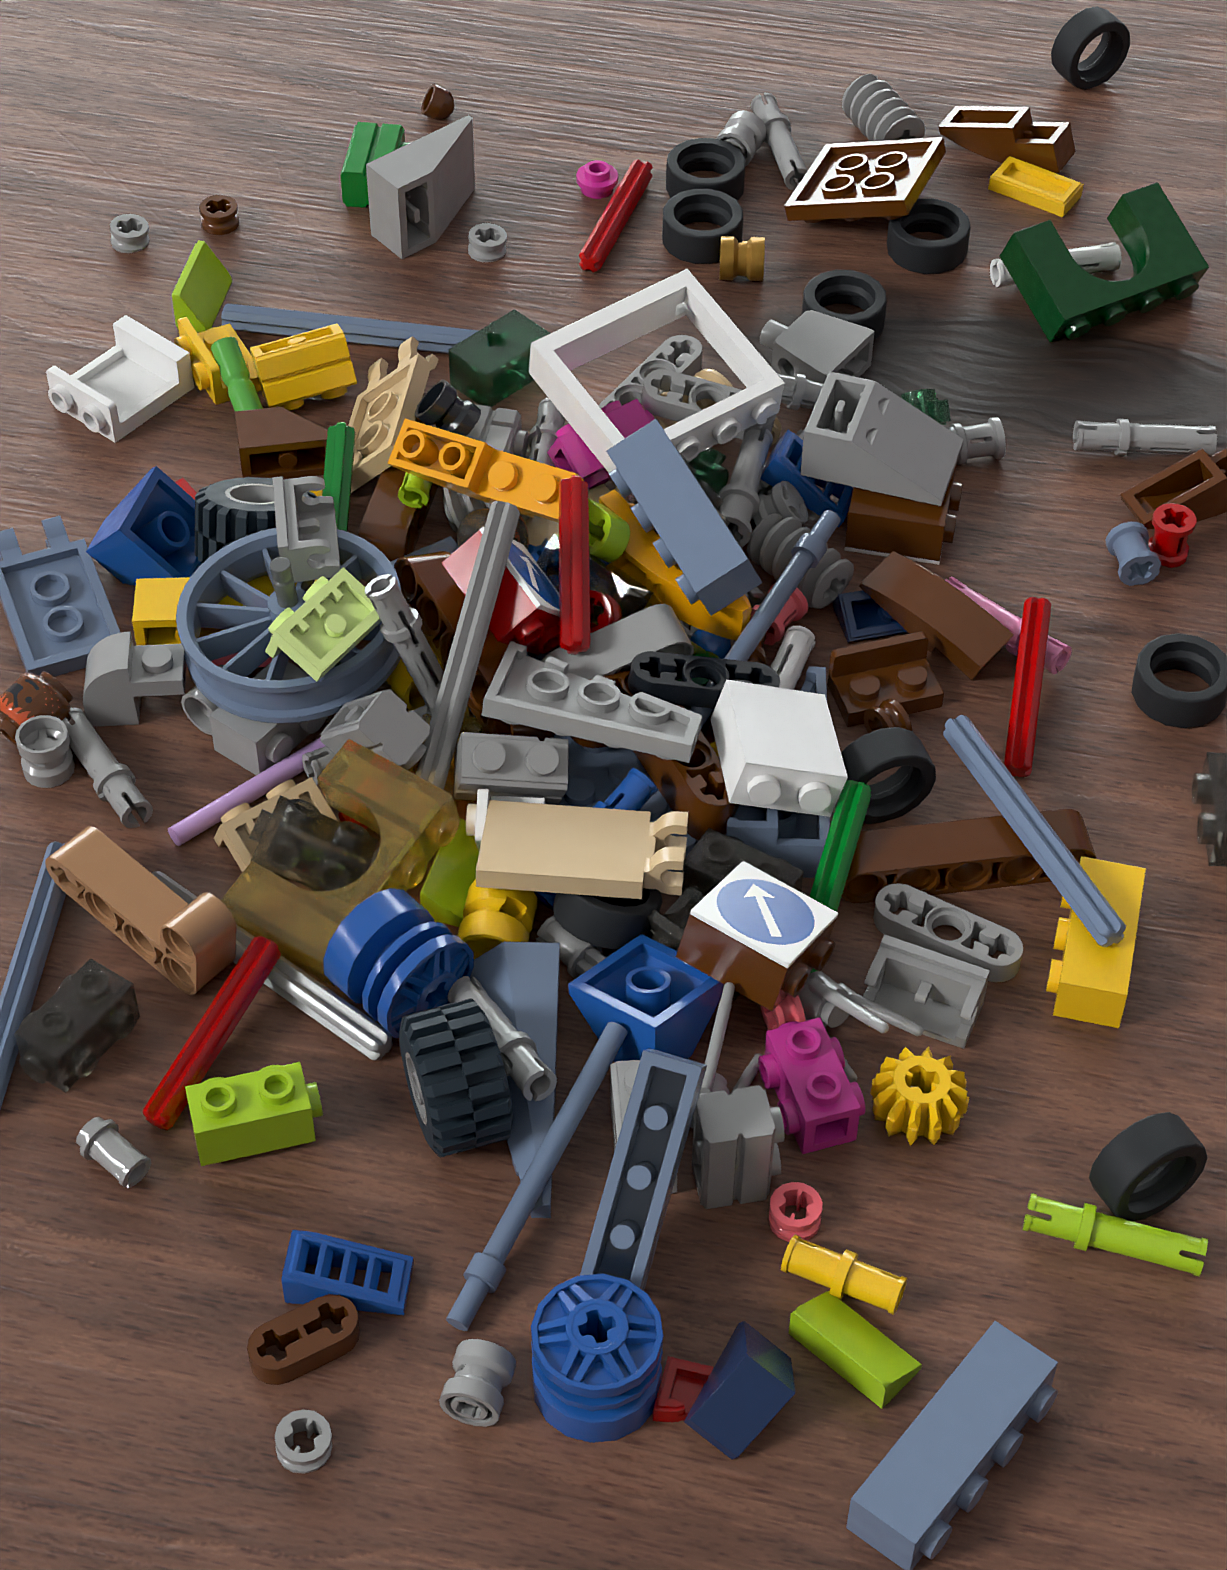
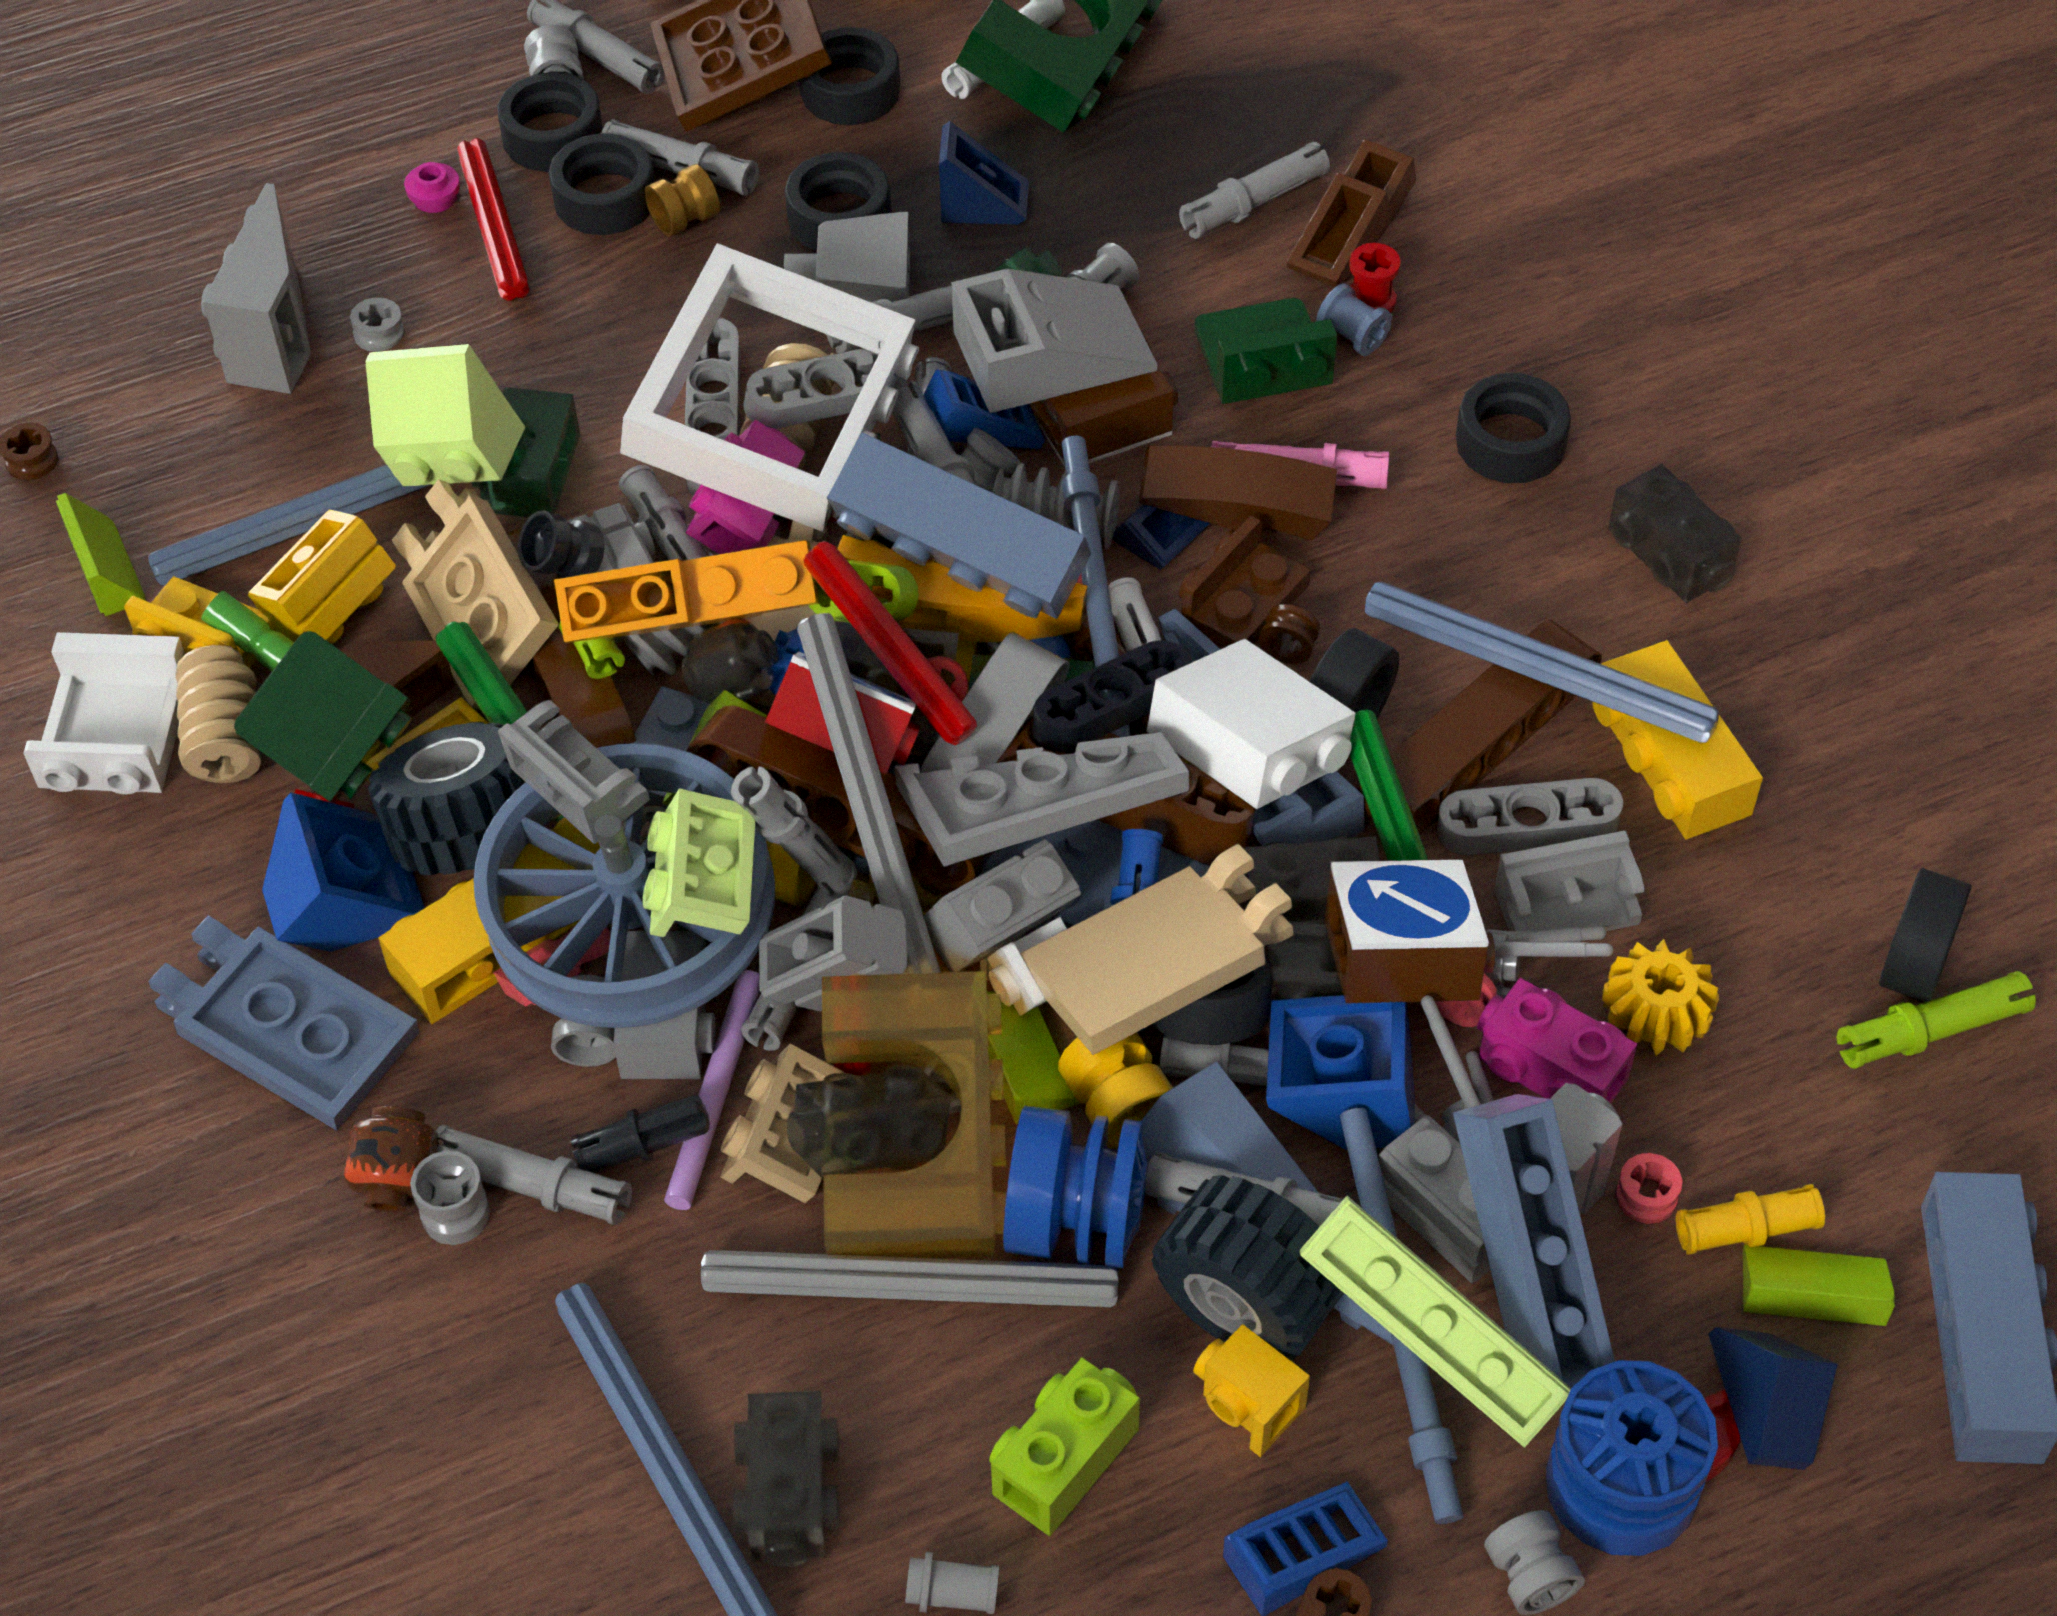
camera: 35 degrees left, 5 degrees up
(123, 673) = (463, 1054): light grey brick -> none
(174, 411) = (210, 697): none -> tan piece
(175, 937) = (745, 1304): medium nougat beam -> none
(183, 781) = (640, 1134): none -> black axle
(212, 1032) = (937, 1389): red axle -> none
(218, 435) = (323, 717): none -> dark green bracket
(365, 146) = (163, 295): green brick -> none
(402, 1160) = (1252, 1386): none -> yellow brick
(437, 103) = (163, 184): reddish brown hinge -> none
(444, 299) = (439, 416): none -> yellowish green slope
(525, 1173) = (1435, 1321): none -> yellowish green tile
(779, 241) = (675, 155): none -> light grey pin
(946, 338) = (978, 183): none -> dark blue slope
(1027, 686) = (1386, 511): red axle -> none
(1047, 540) = (1266, 349): none -> dark green bracket

